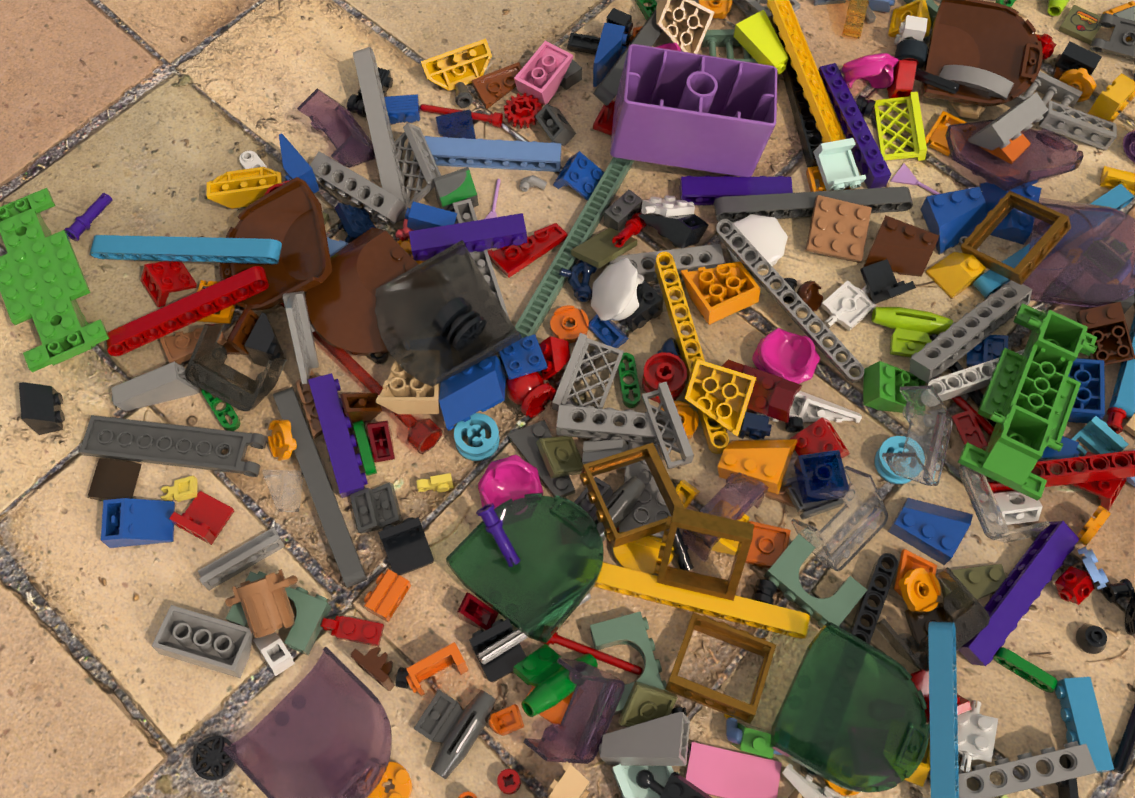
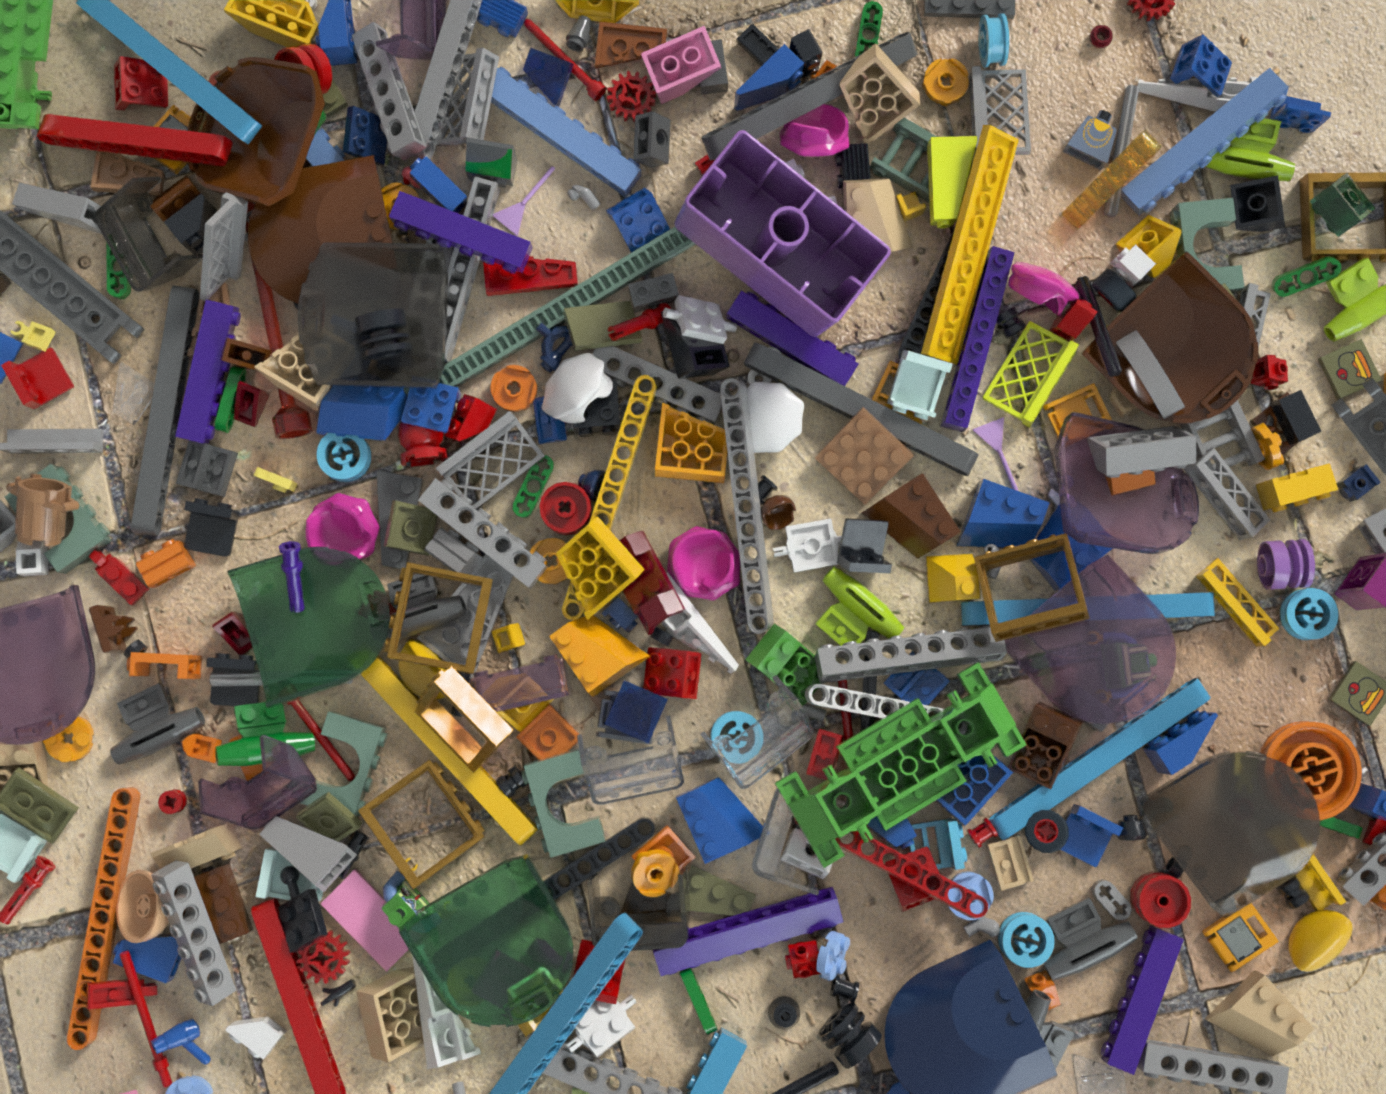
camera: 25 degrees right, 20 degrees up
(281, 441) = (151, 343): light orange plate -> none
(674, 421) = (529, 573): light grey fence -> none
(1093, 525) = (867, 919): light orange plate -> none

